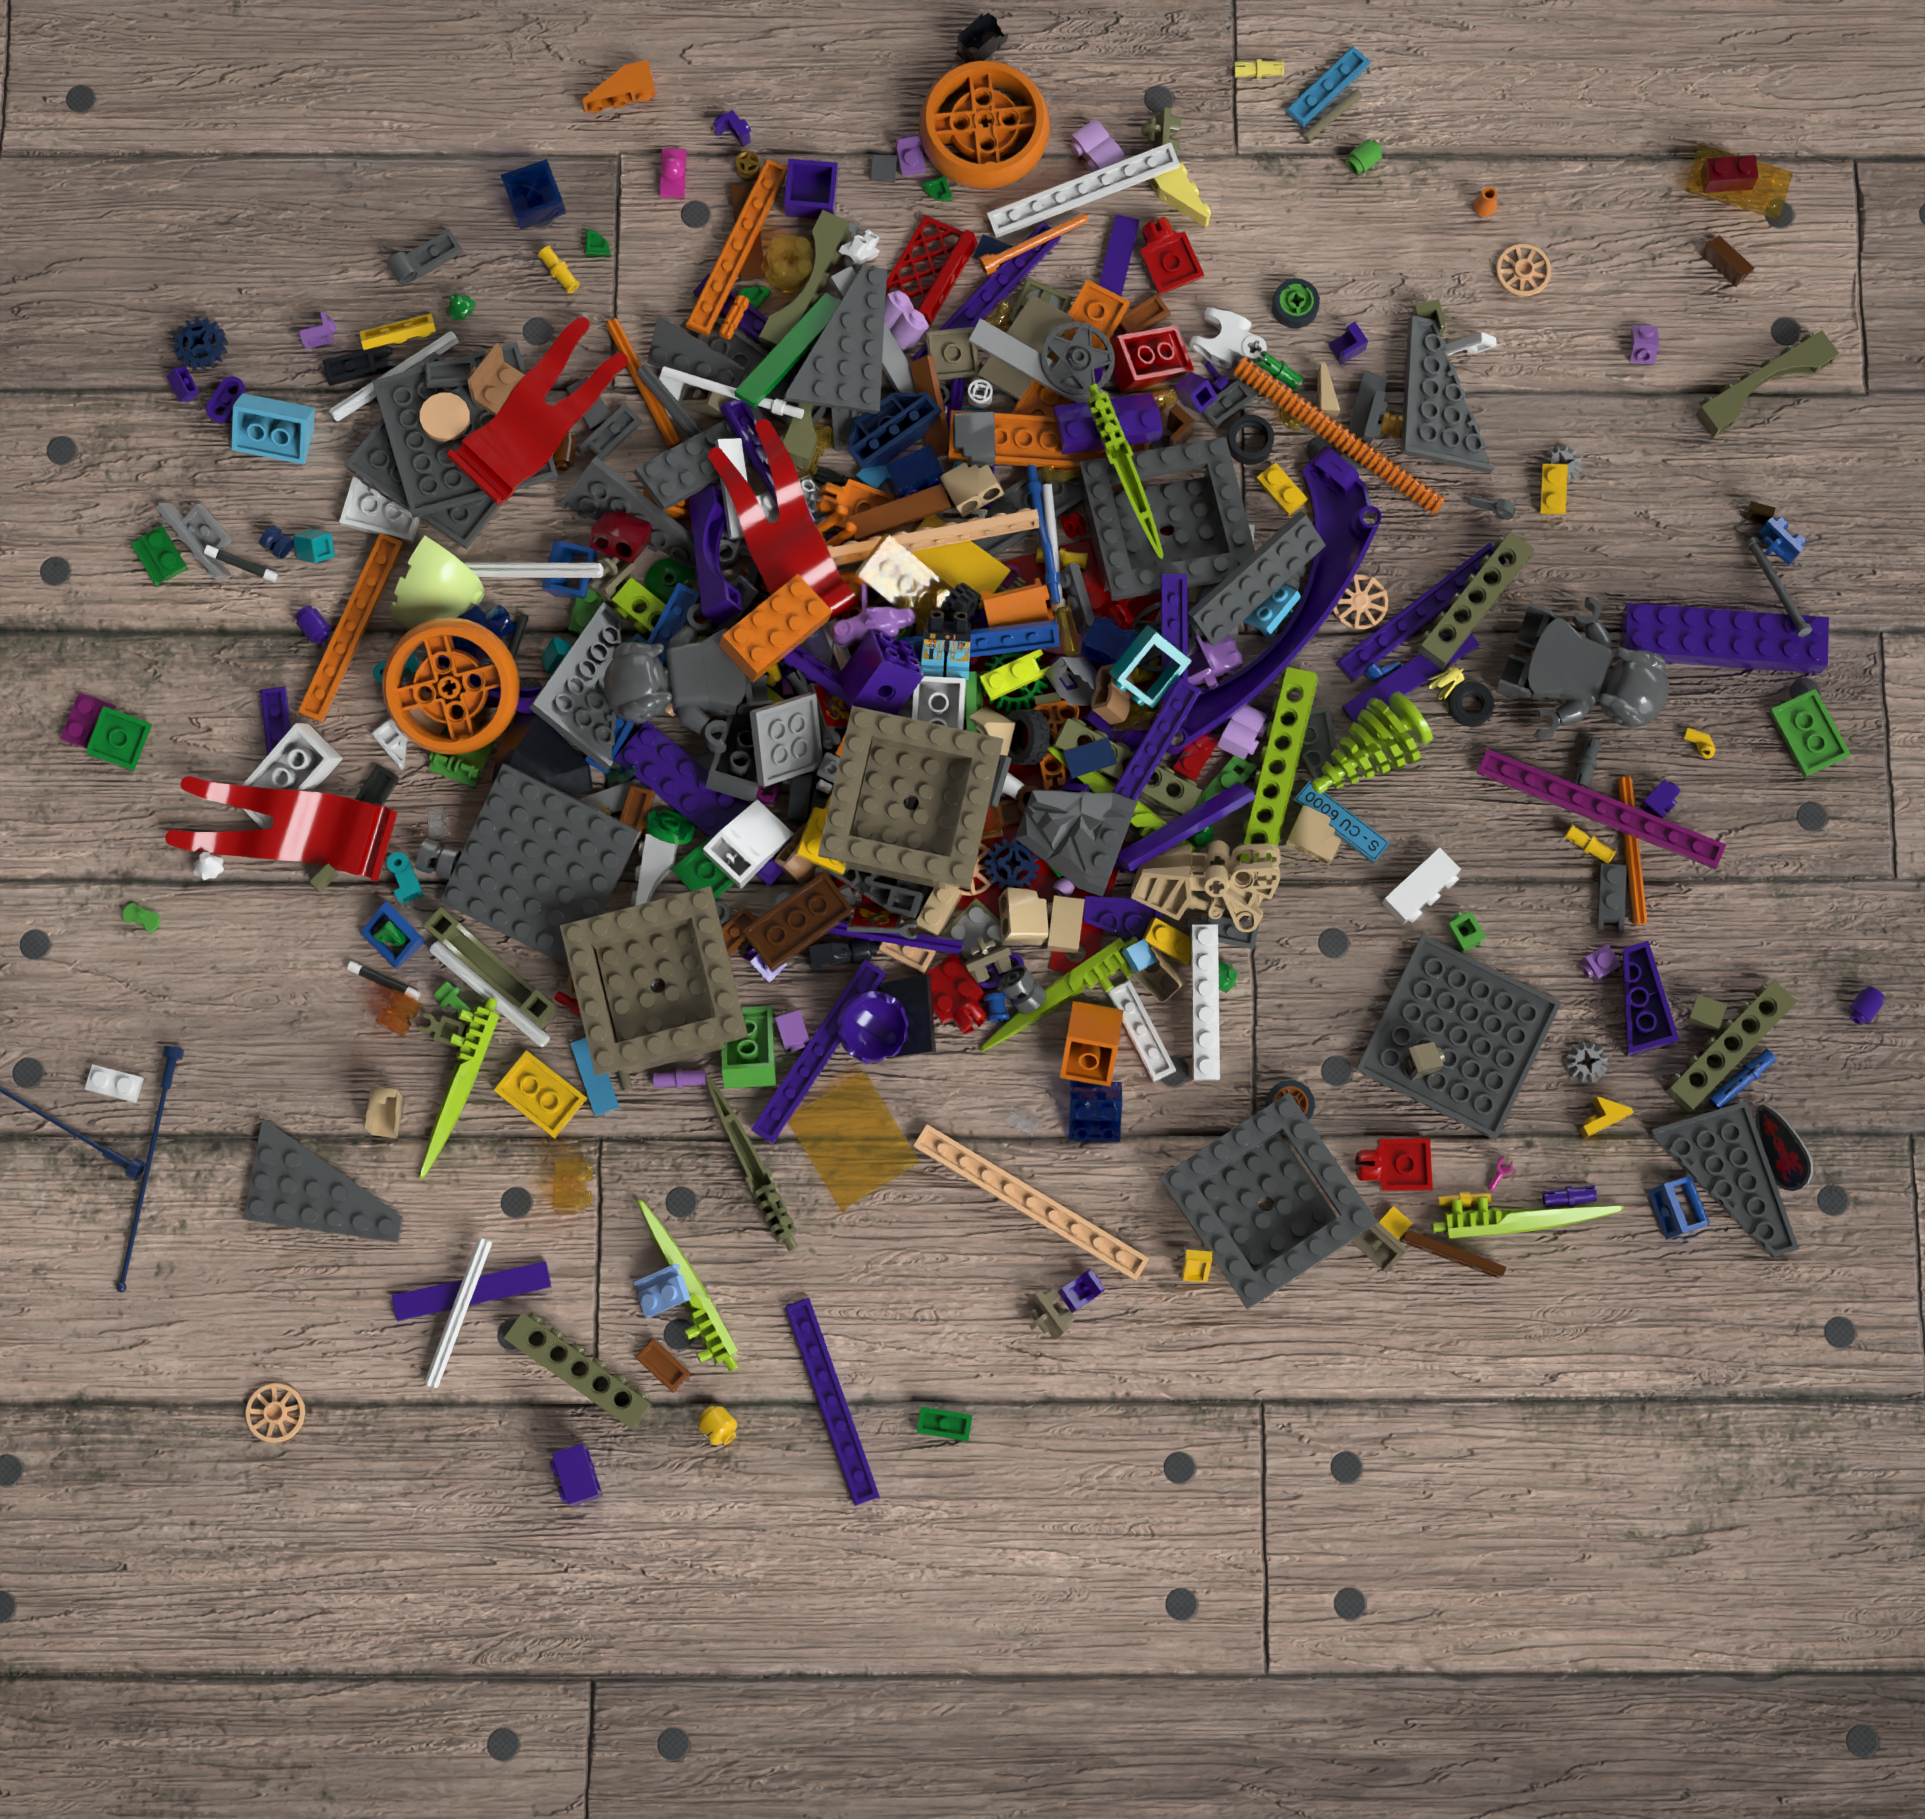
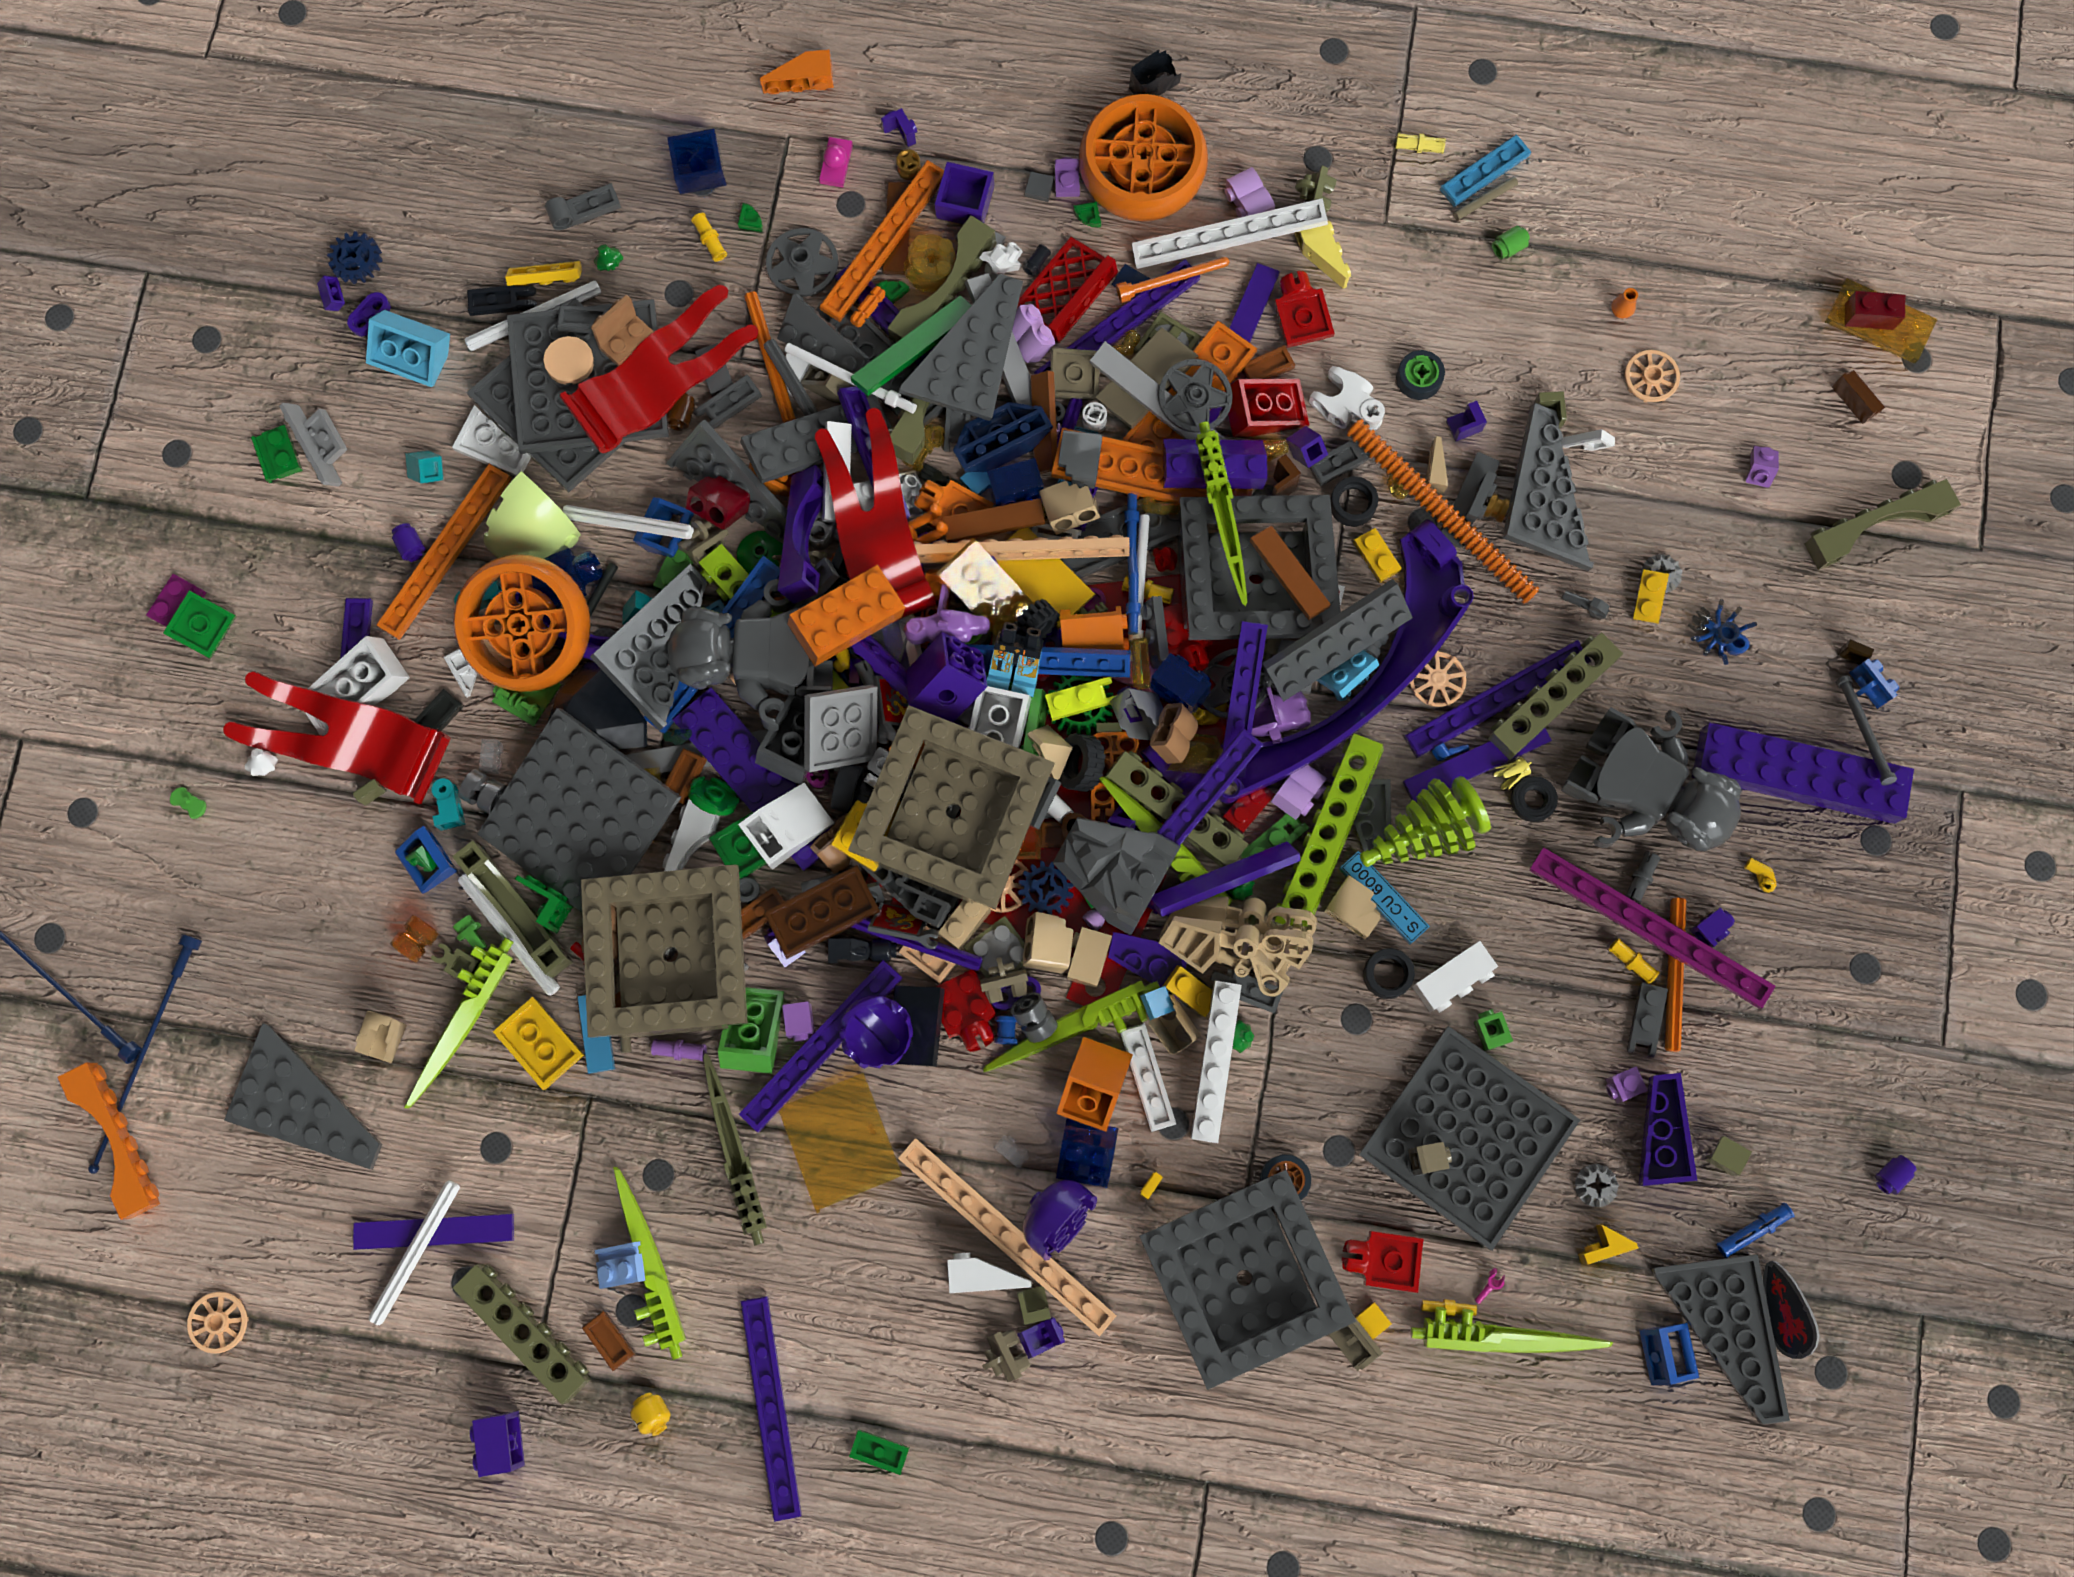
camera: 15 degrees right, 0 degrees up
(114, 1083) = (128, 963): white plate -> none
(165, 1298) = (131, 1188): none -> orange arch
(241, 563) = (351, 473): pearl dark grey bar -> none
(276, 542) = (391, 460): dark blue wheel -> none
(318, 335) = (467, 265): medium lavender bracket -> none
(382, 980) = (408, 903): pearl dark grey bar -> none
(534, 957) = (552, 913): none -> green bracket
(565, 1171) = (551, 1126): clear yellow brick -> none
(658, 281) = (802, 262): none -> dark grey wheel
(894, 244) = (1037, 259): none -> black pin
(1012, 1241) = (975, 1274): none -> white slope
(1068, 1263) = (1034, 1305): none -> olive panel
(1077, 1173) = (1056, 1216): none -> dark purple cylinder
(1090, 757) = (1140, 794): dark blue sticker -> none
(1133, 656) = (1201, 698): teal window -> none
(1161, 1131) = (1150, 1185): none -> yellow tile
(1196, 1266) = (1162, 1333): yellow tile -> none
(1200, 519) = (1290, 572): none -> dark orange tile
(1220, 382) = (1334, 439): dark purple hand -> none
(1279, 370) = (1393, 437): green pin -> none
(1372, 881) = (1399, 956): none -> black tyre
(1453, 1254) = (1429, 1364): reddish brown tile -> none
(1569, 1196) = (1557, 1323): dark purple pin -> none
(1632, 515) = (1725, 635): none -> animal
(1778, 1002) = (1805, 1160): olive brick -> none
(1809, 733) = (1876, 883): bright green plate -> none

